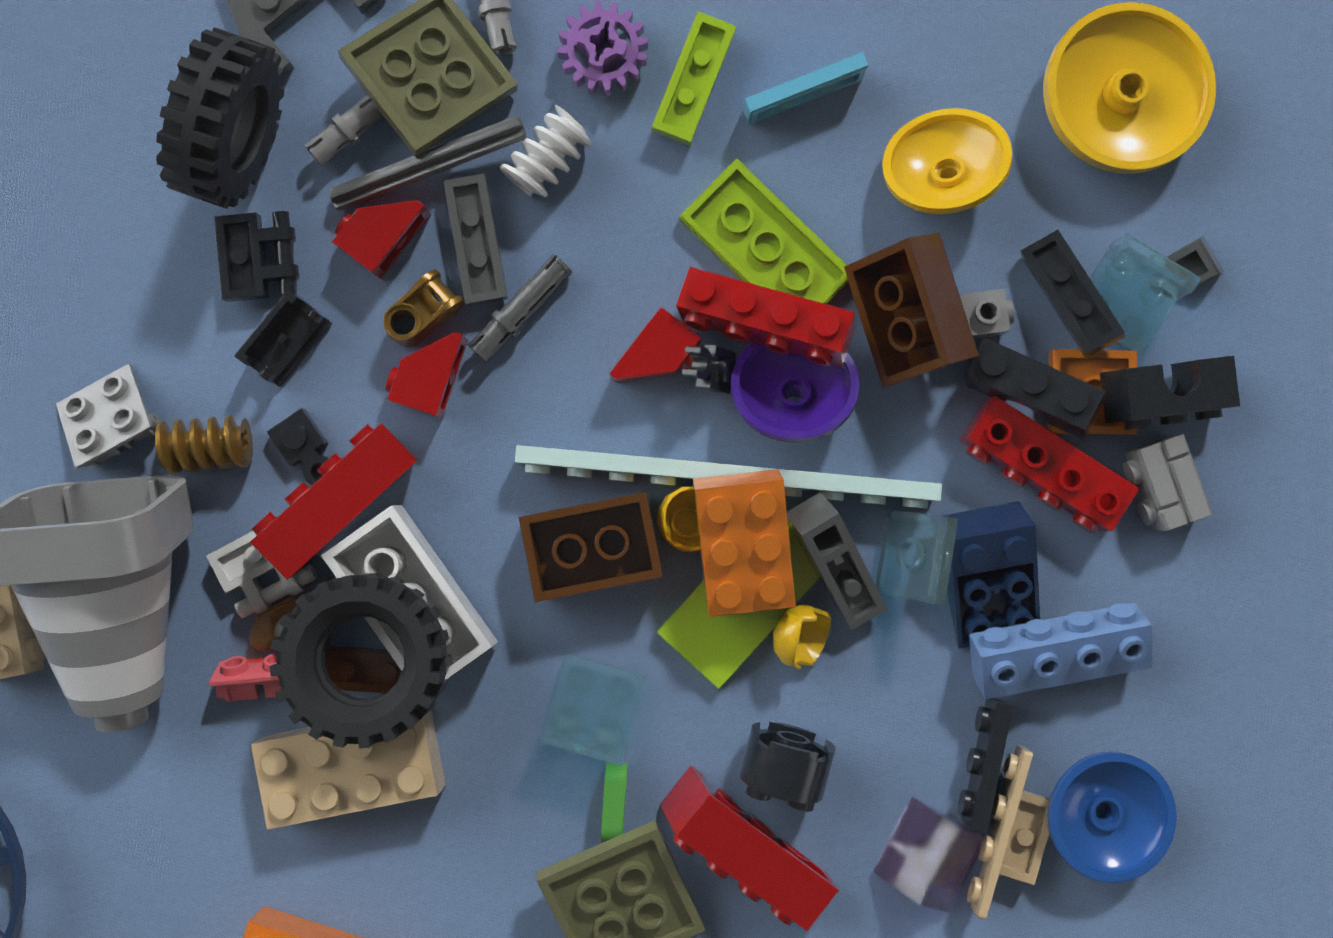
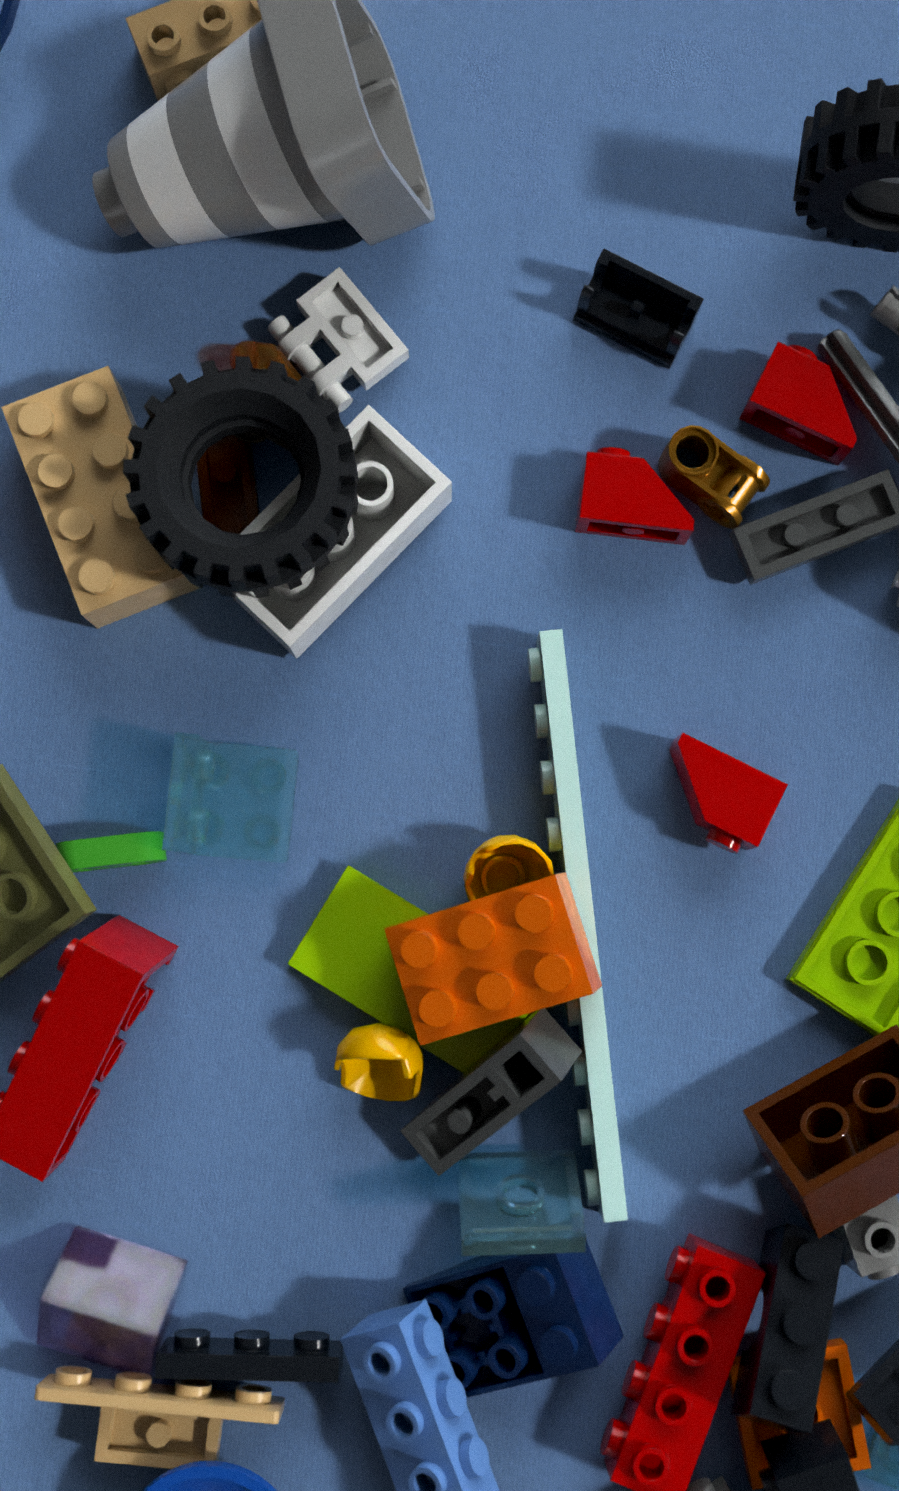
camera: 80 degrees right, 5 degrees down
(105, 418) = (487, 114): light grey hinge -> none
(203, 447) = (479, 237): pearl gold piece -> none
(239, 678) = (188, 340): coral hinge -> none
(243, 256) = (730, 239): black plate -> none
(299, 442) = (507, 358): black plate -> none
(332, 501) = (442, 407): red brick -> none
(515, 313) = (733, 596): dark grey pin -> none
(590, 546) = (448, 753): reddish brown brick -> none
(711, 367) = (719, 871): black plate -> none
(766, 317) = (805, 931): red brick -> none
(767, 379) = (744, 984): dark purple dish -> none
(786, 765) = (200, 1076): black brick -> none

